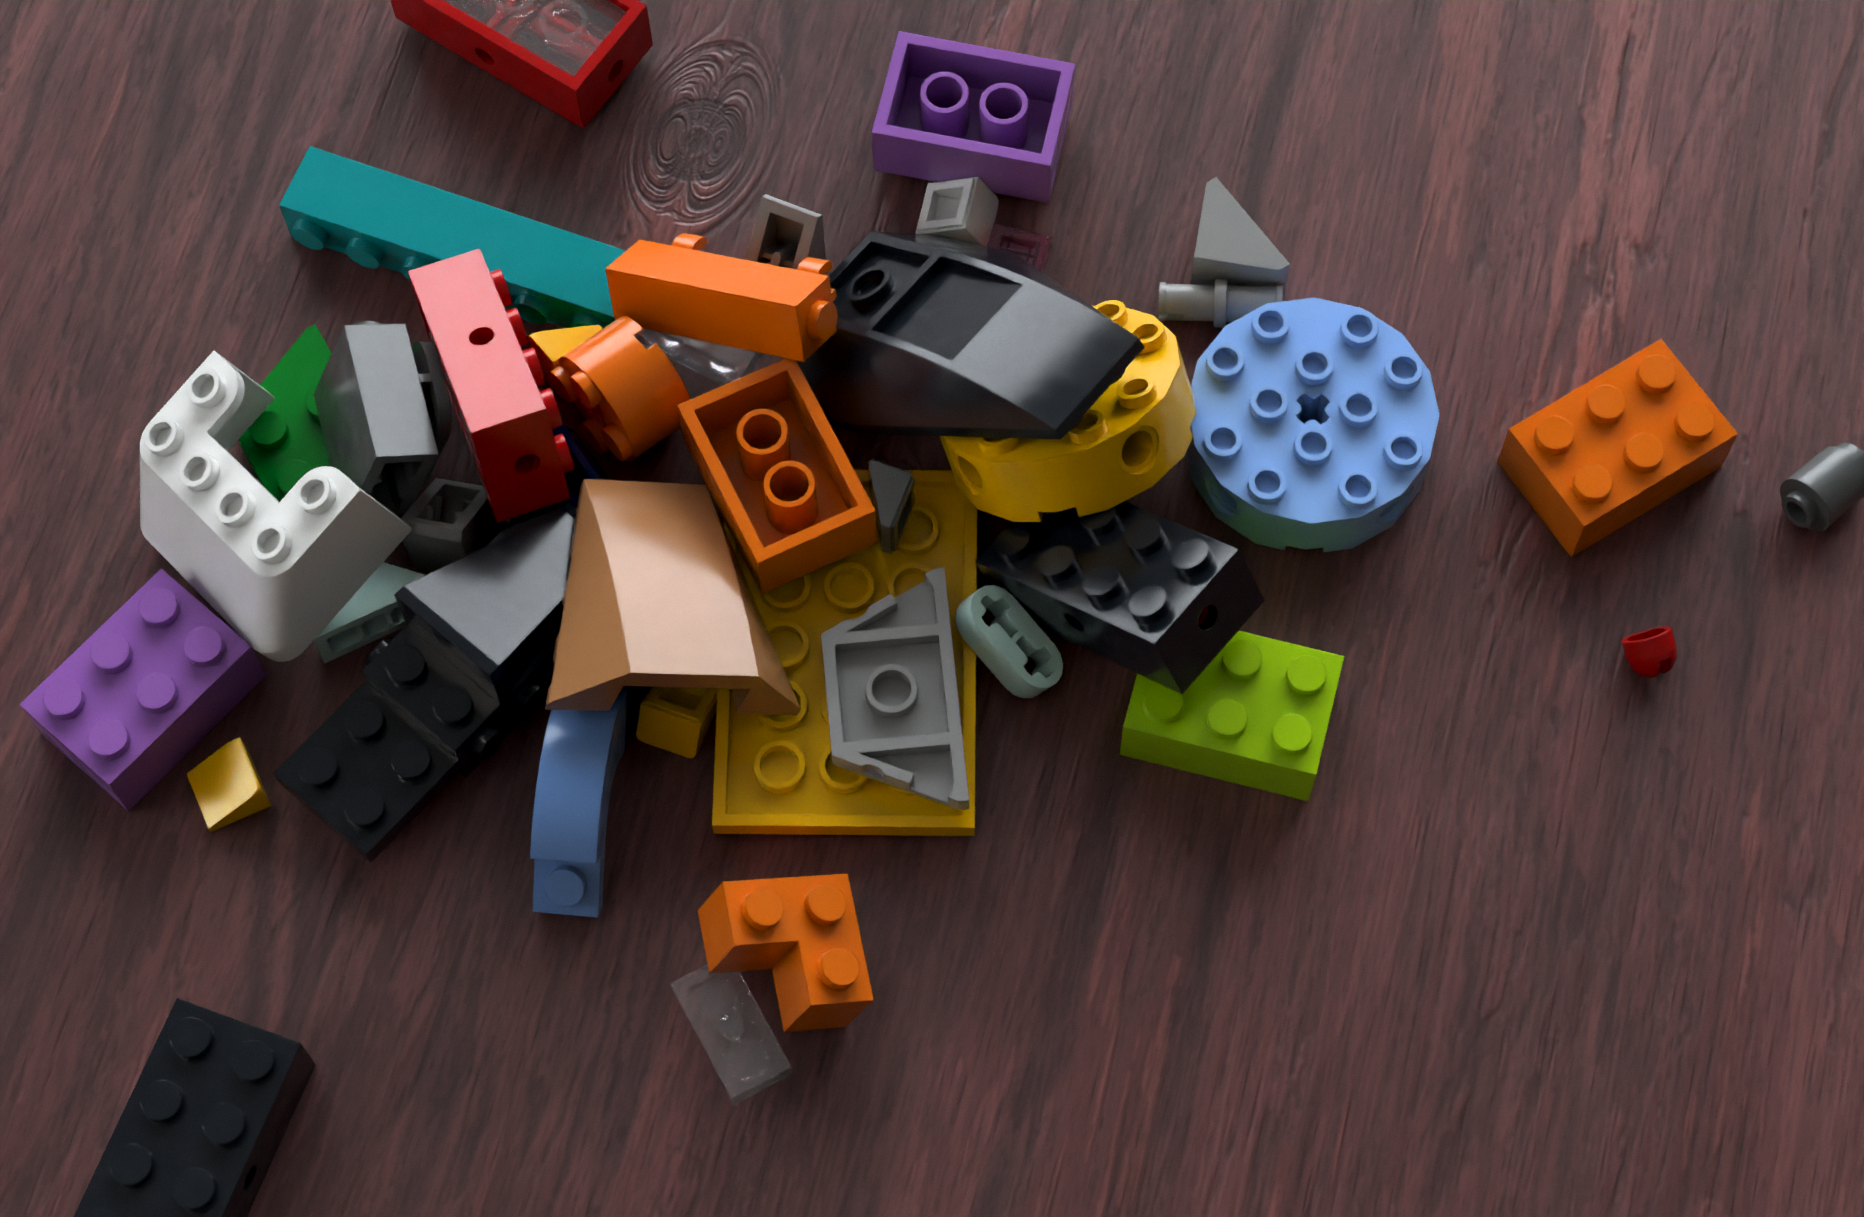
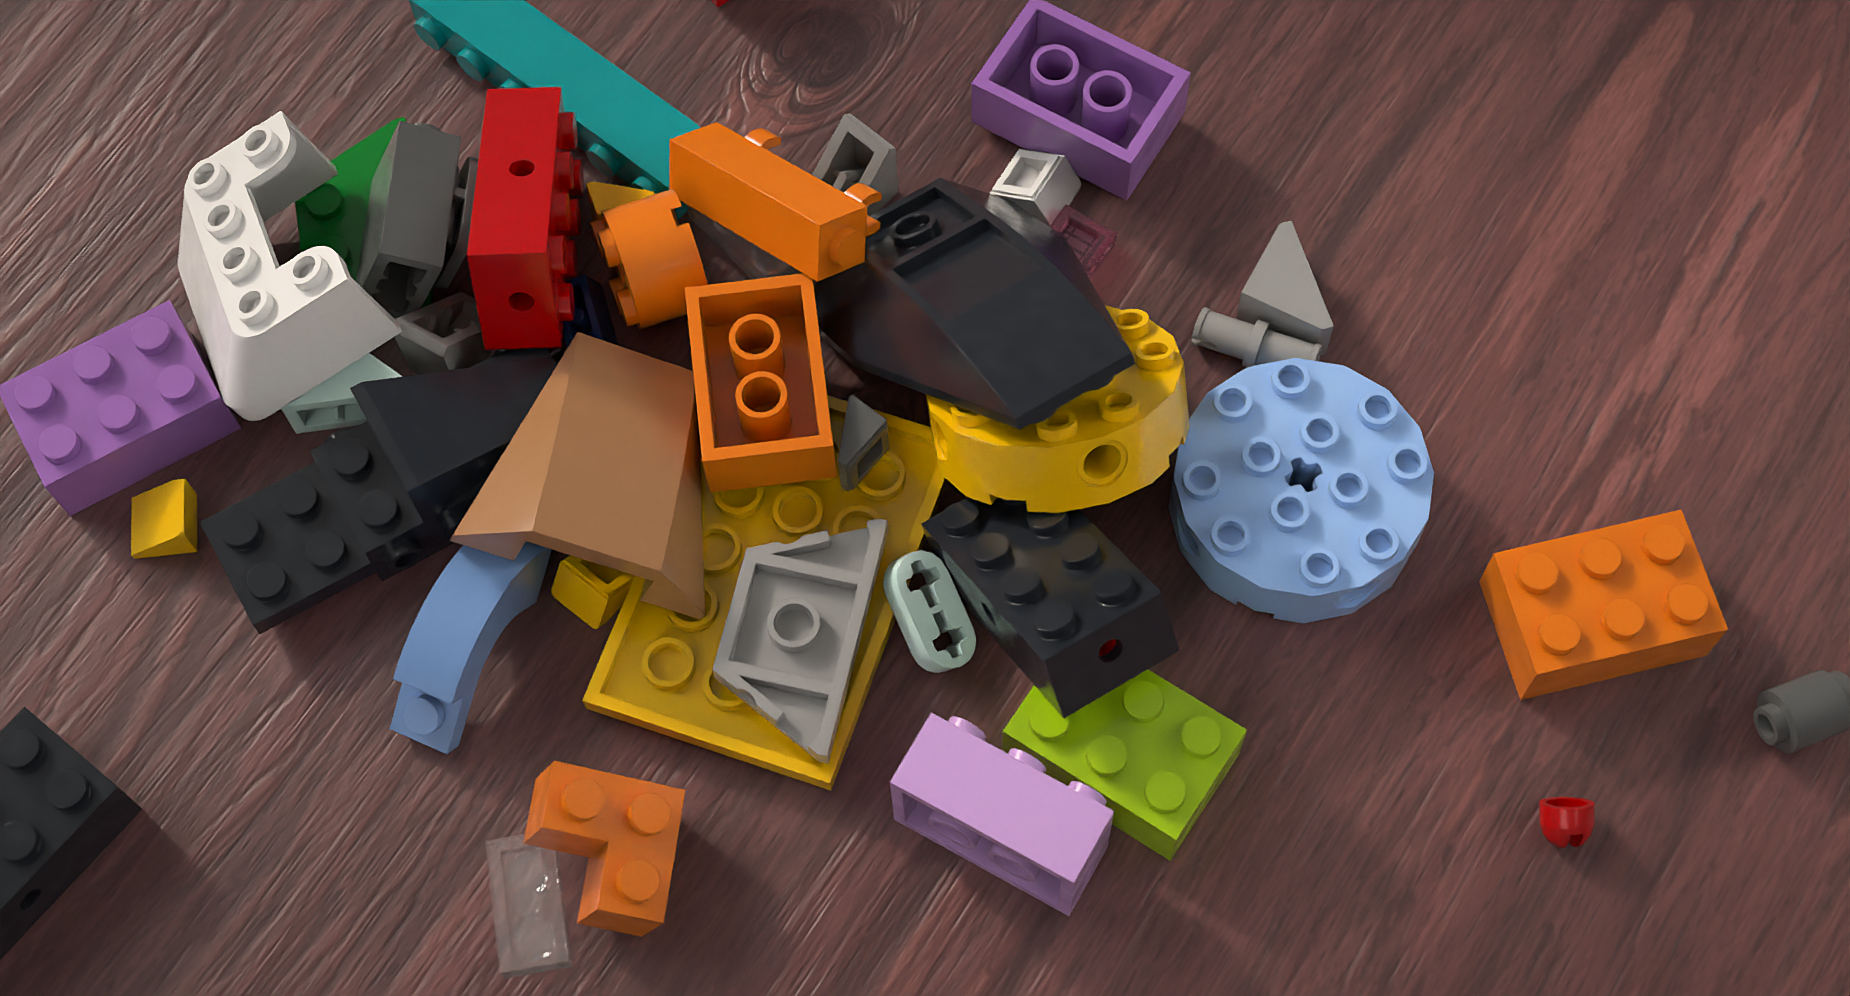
camera: 20 degrees right, 0 degrees up
(1148, 801) = (1001, 811): none -> lavender brick

